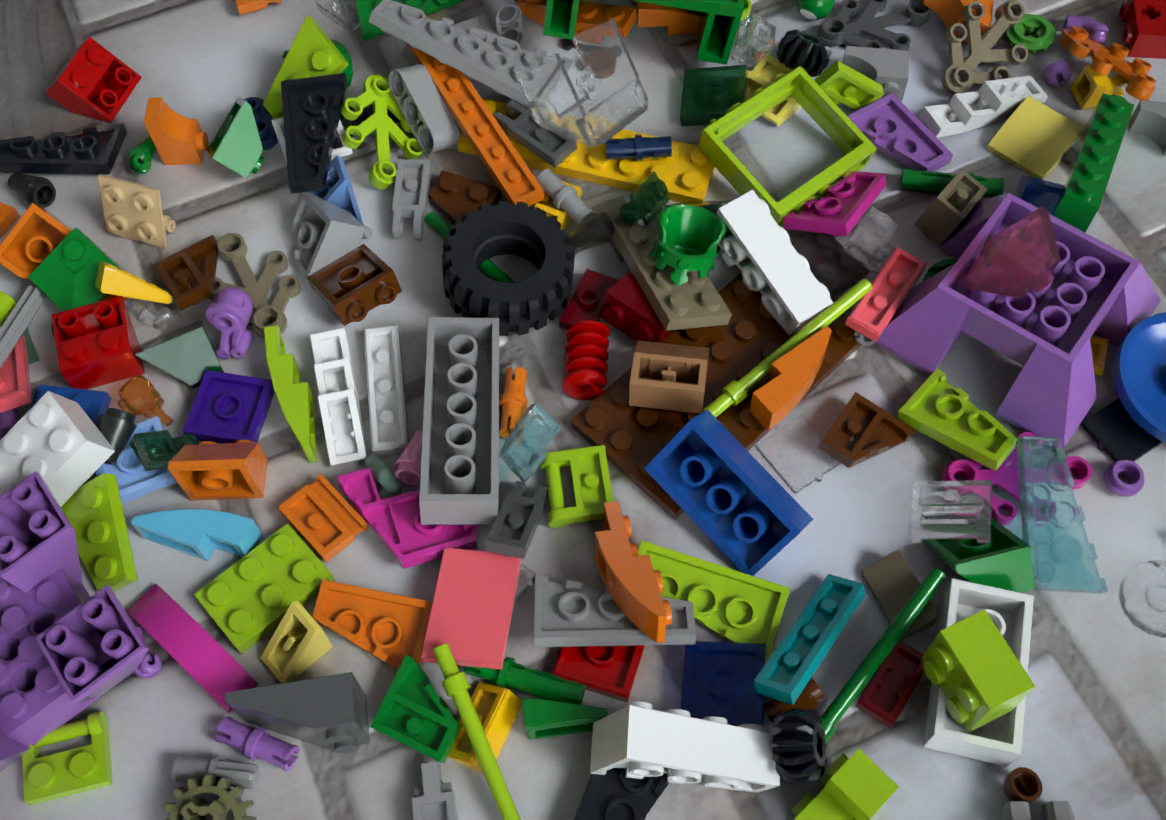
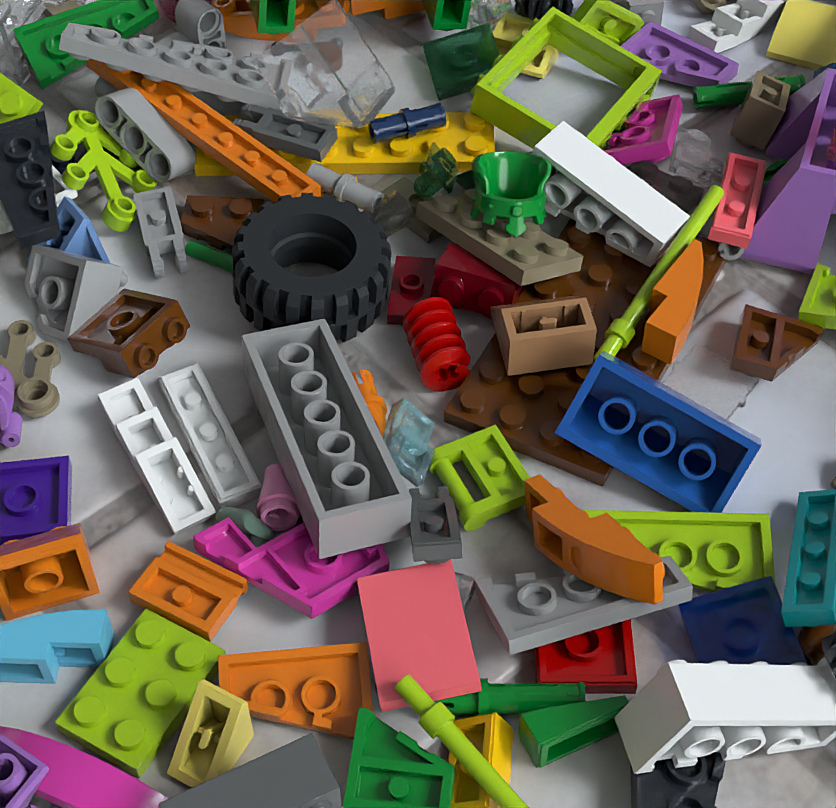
camera: 20 degrees left, 10 degrees down
(294, 397) = (100, 470): lime slope -> none

